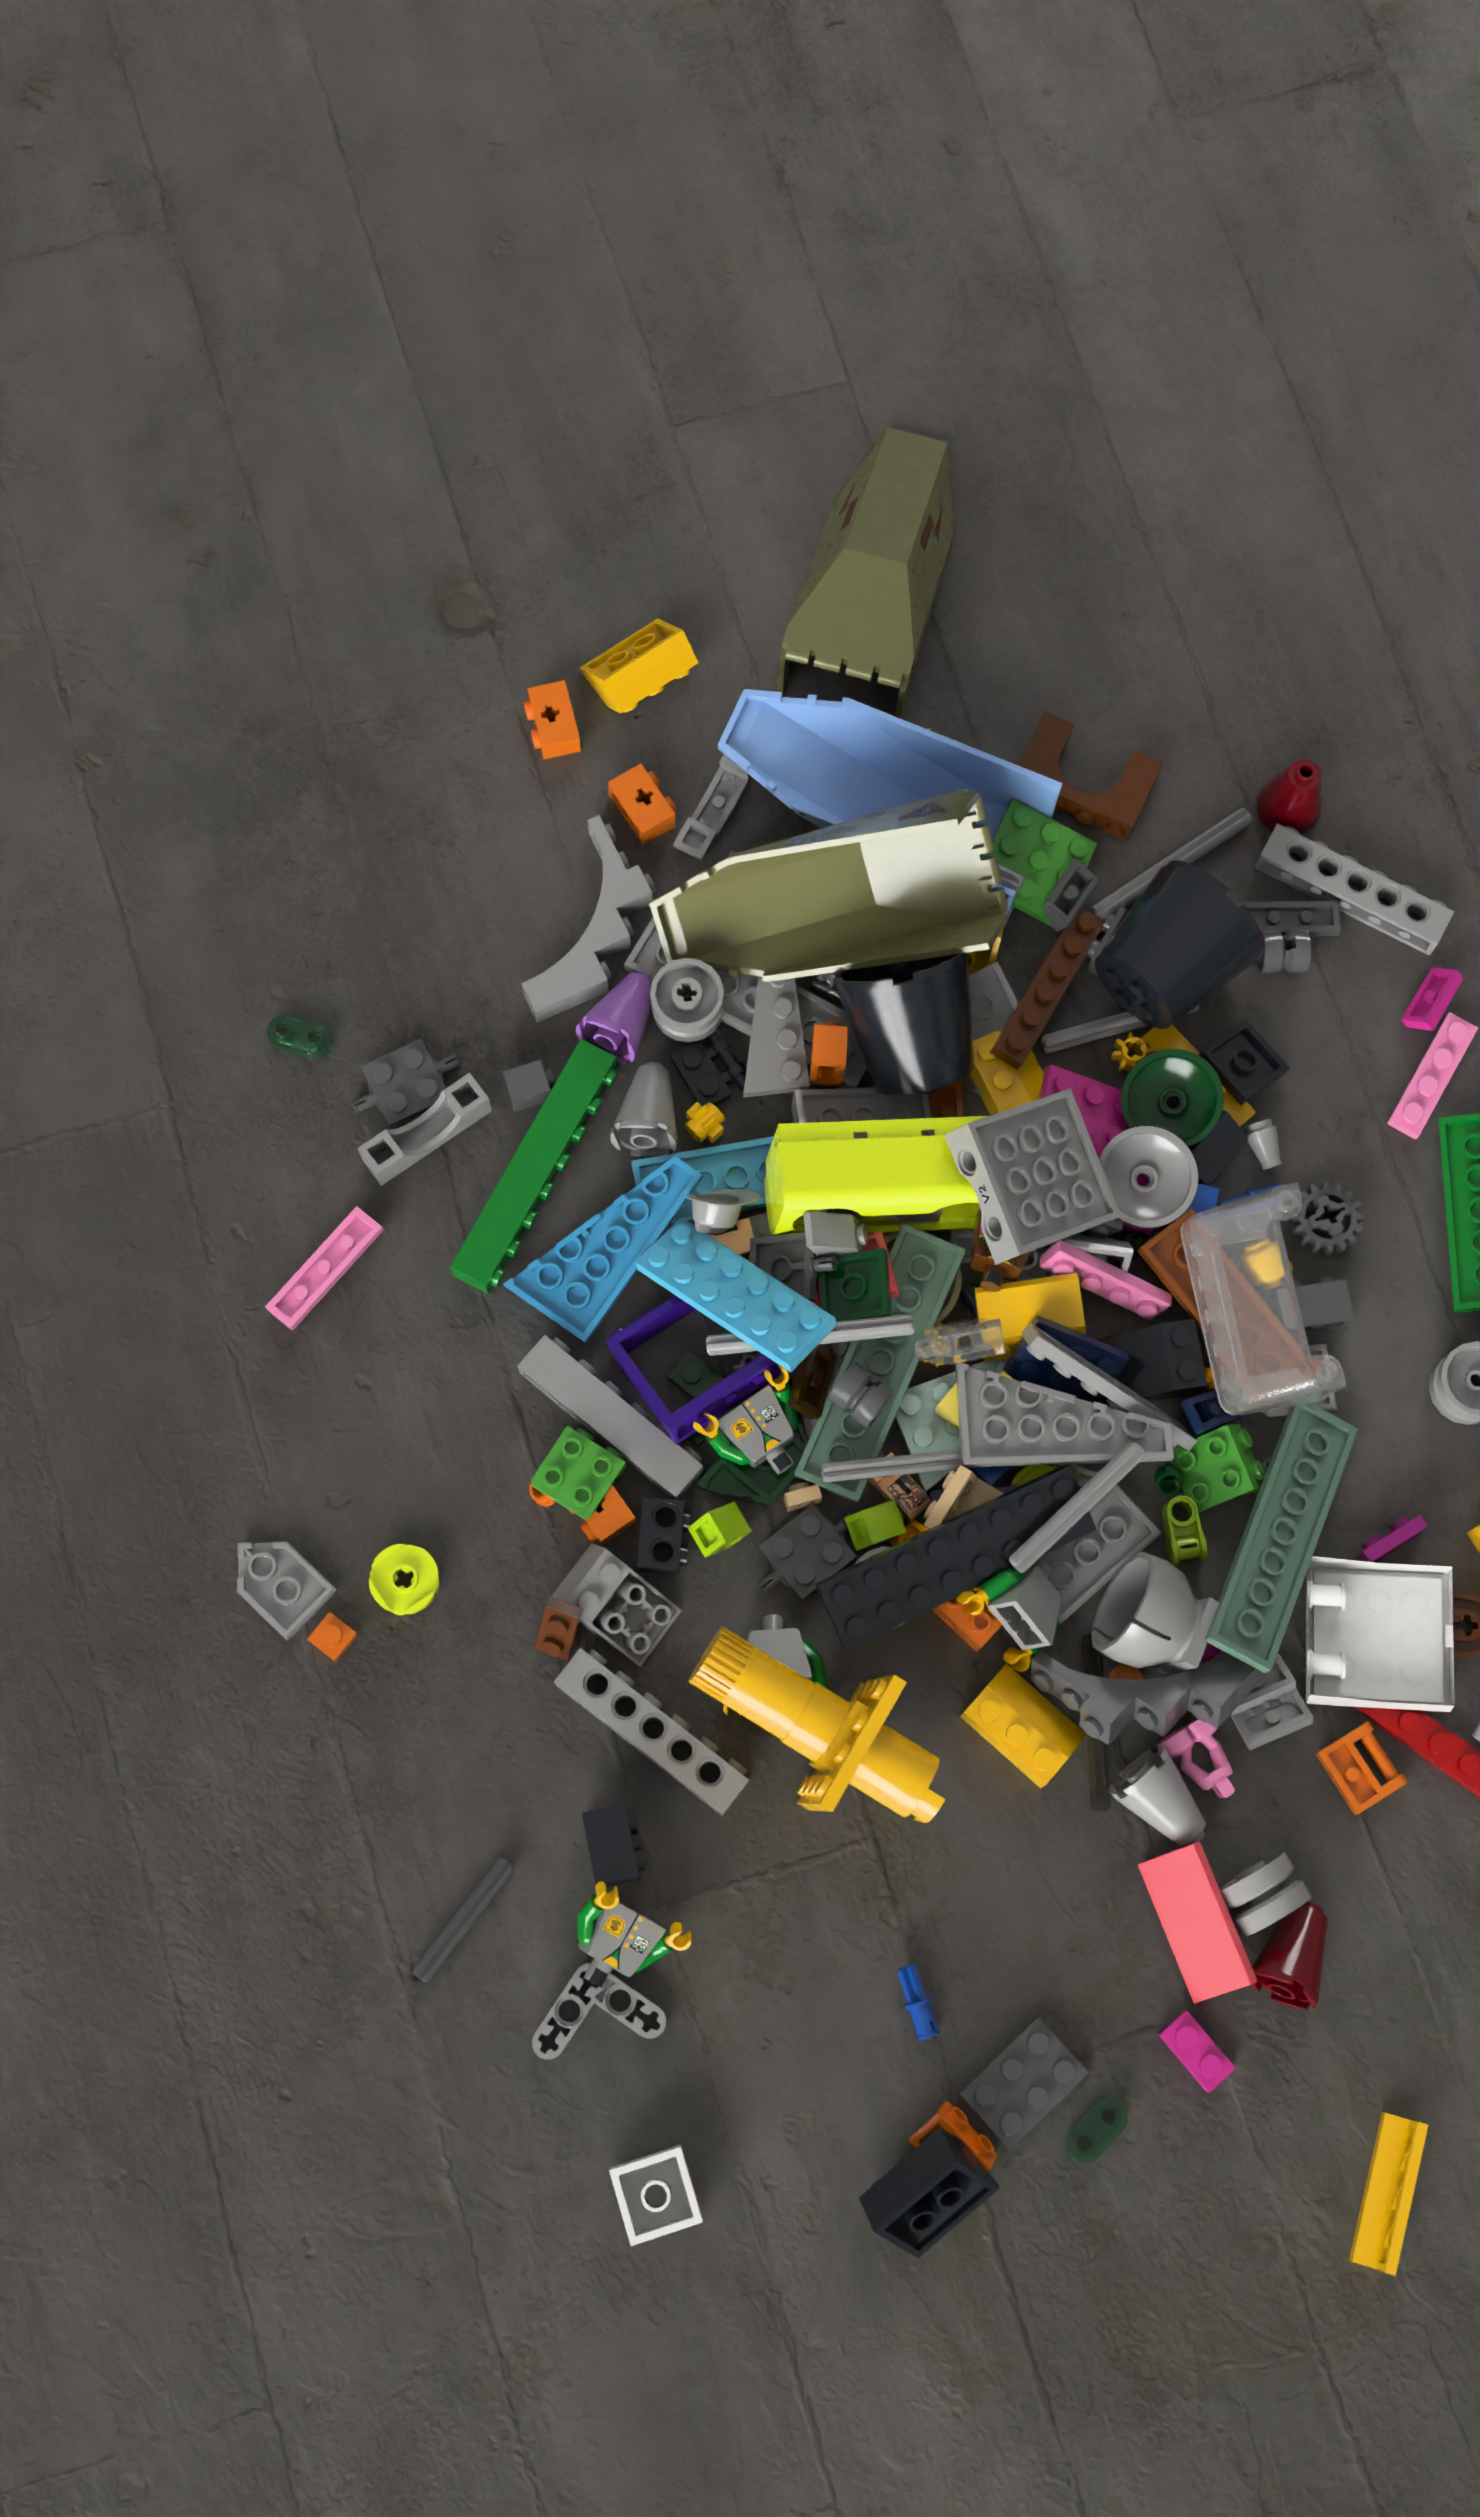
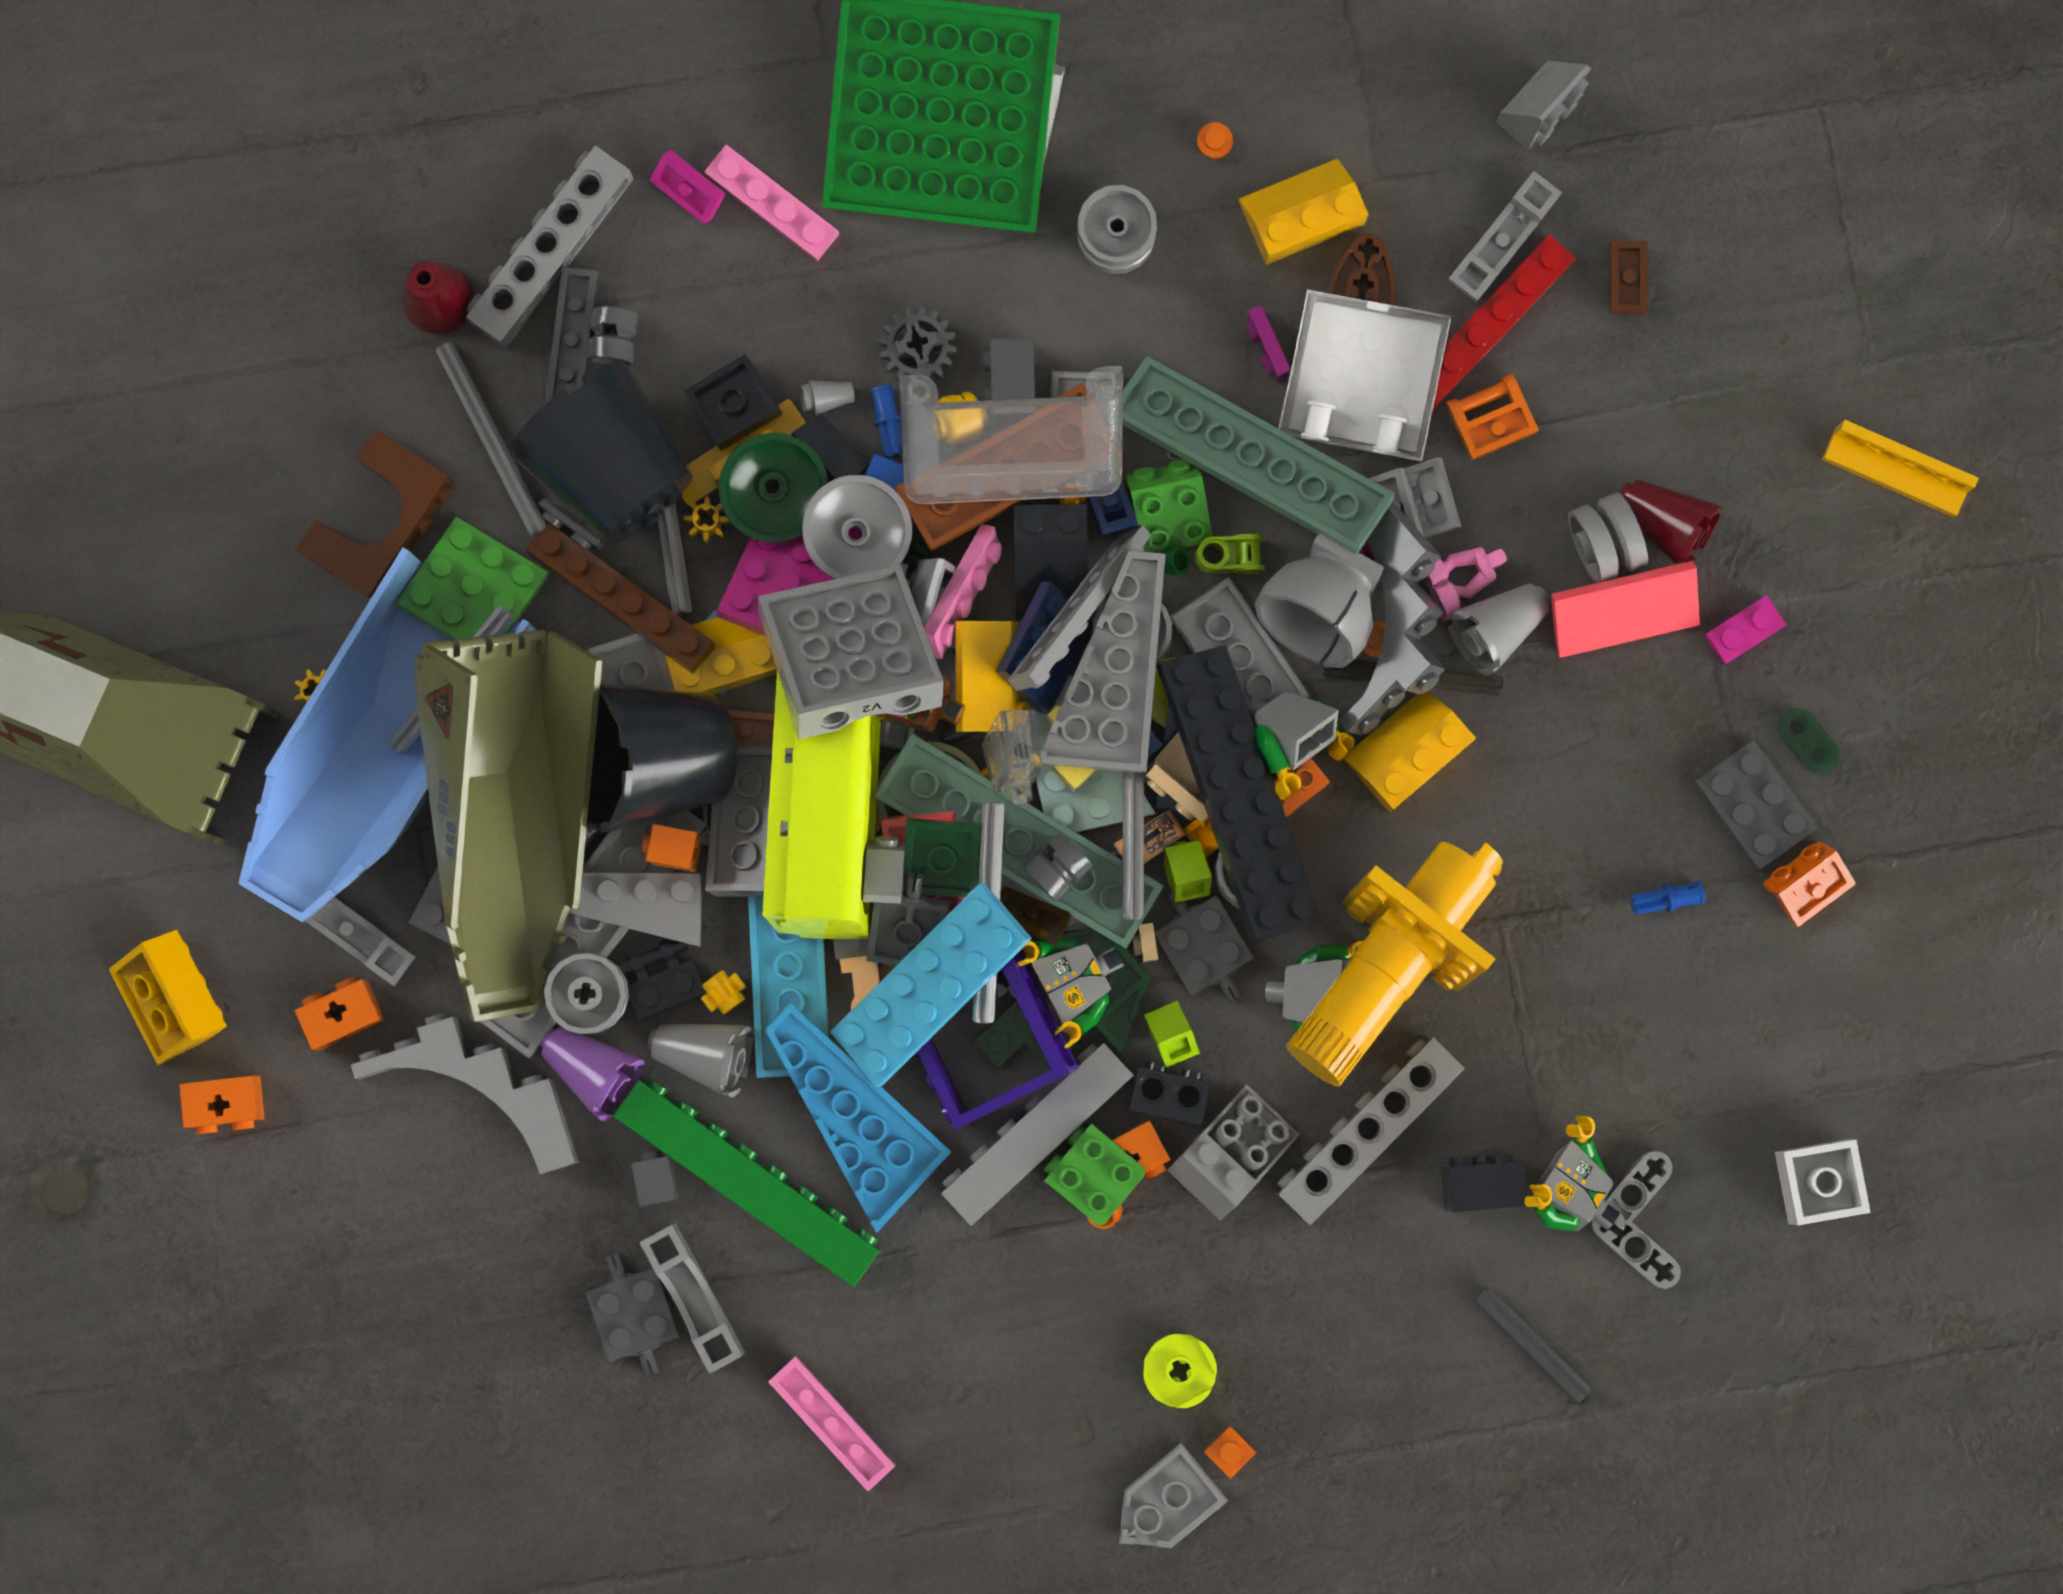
camera: 80 degrees left, 10 degrees up
(298, 1037) = (562, 1427): clear green plate -> none
(558, 1628) = (1256, 1214): reddish brown plate -> none
(719, 1209) = (826, 987): light grey piece -> none
(927, 2193) = (1851, 915): black slope -> none
(1069, 894) = (518, 557): dark grey slope -> none
(1077, 1507) = (1205, 661): light grey axle -> none

